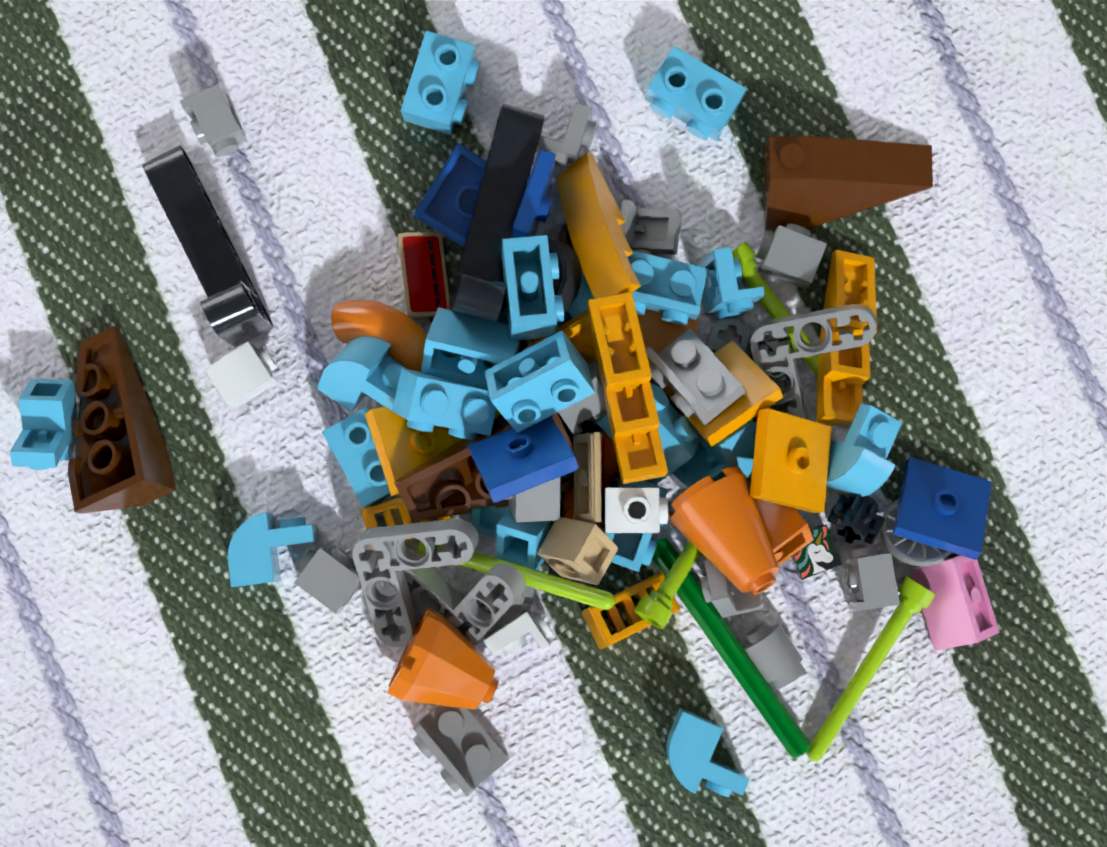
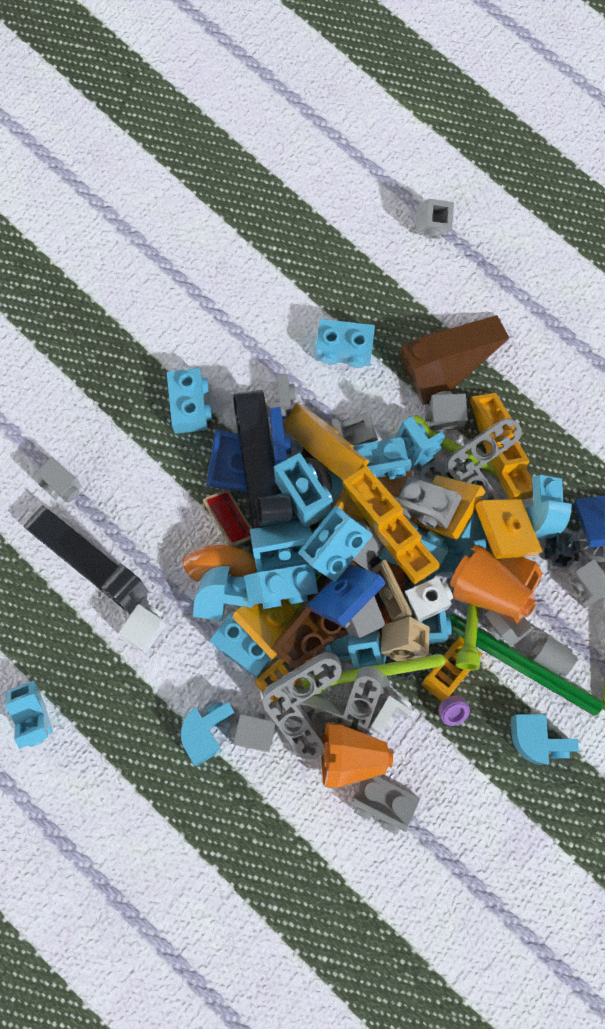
camera: 25 degrees left, 10 degrees down
(118, 441) = (79, 706): reddish brown wedge -> none
(606, 667) = (454, 710): none -> medium lavender tile
(817, 555) = (549, 583): tile -> none

